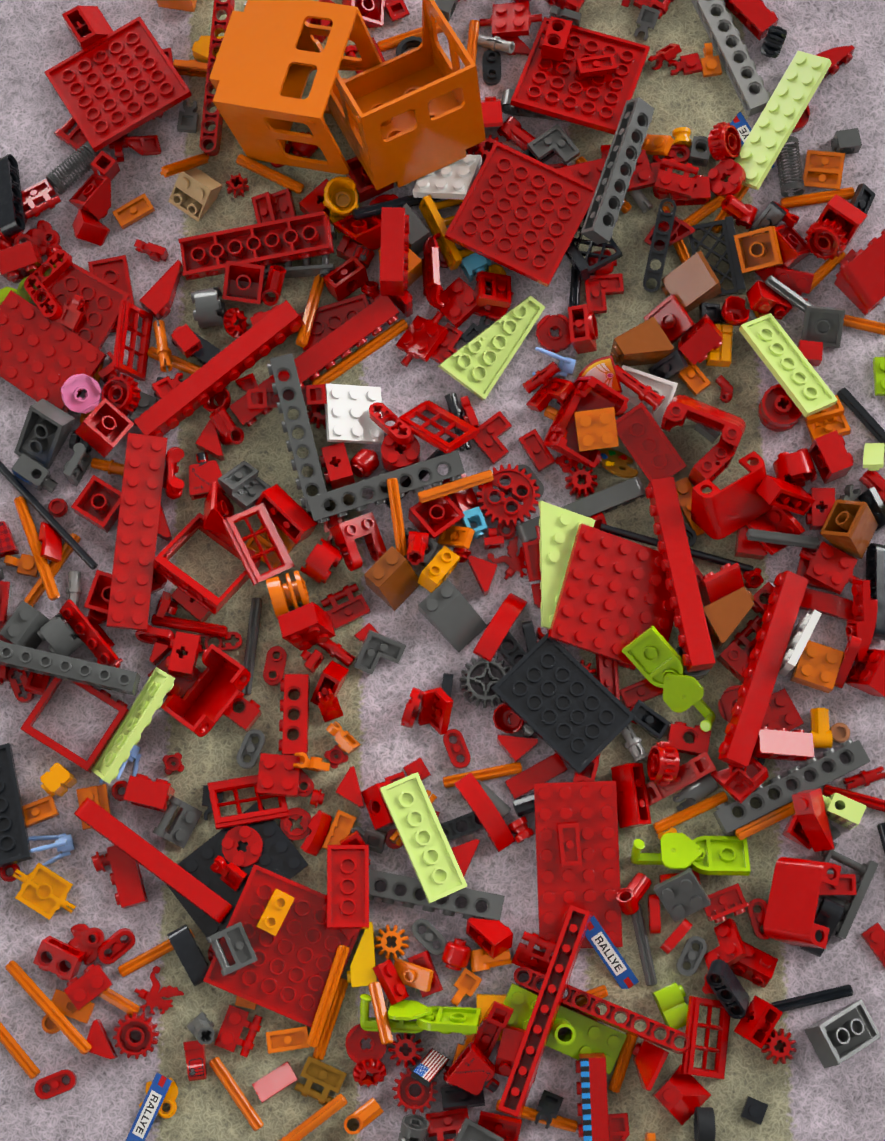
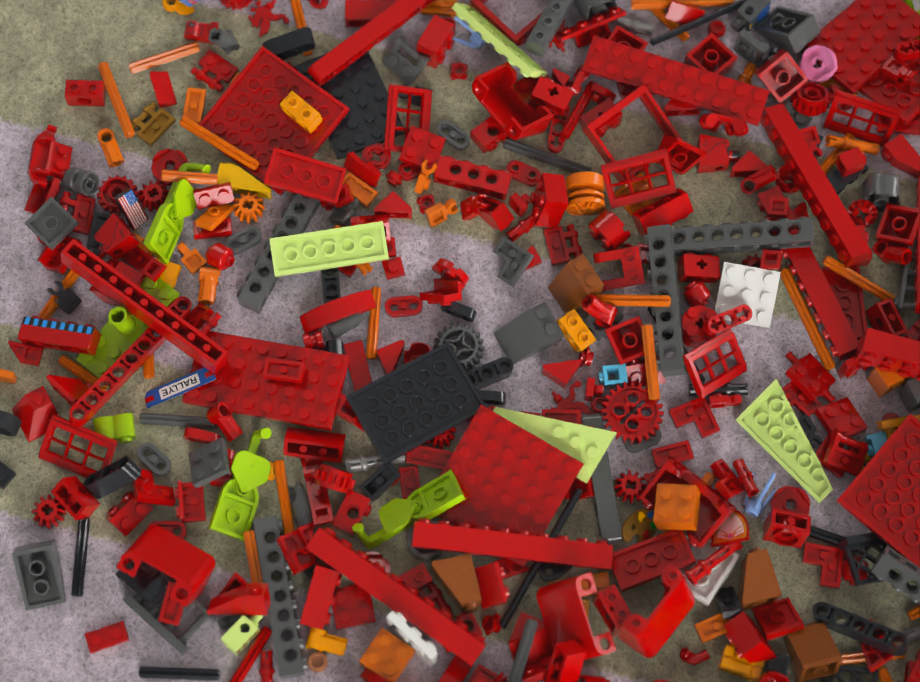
camera: 100 degrees right, 5 degrees down
(230, 873) = (346, 89): red plate -> none
(238, 945) = (282, 77): dark grey plate -> none
(243, 485) = (699, 182): dark grey slope -> none
(254, 846) = (371, 96): red plate -> none
(320, 1050) = (199, 144): orange axle -> none
(373, 1066) = (144, 162): red gear -> none
(431, 271) = (884, 401): red plate -> none
(456, 537) = (602, 355): orange plate -> none
(465, 853) = (304, 285): red slope -> none
(490, 935) = (226, 288): red slope -> none
(499, 627) = (507, 370): red slope -> none
(675, 937) = (175, 450): red beam -> none

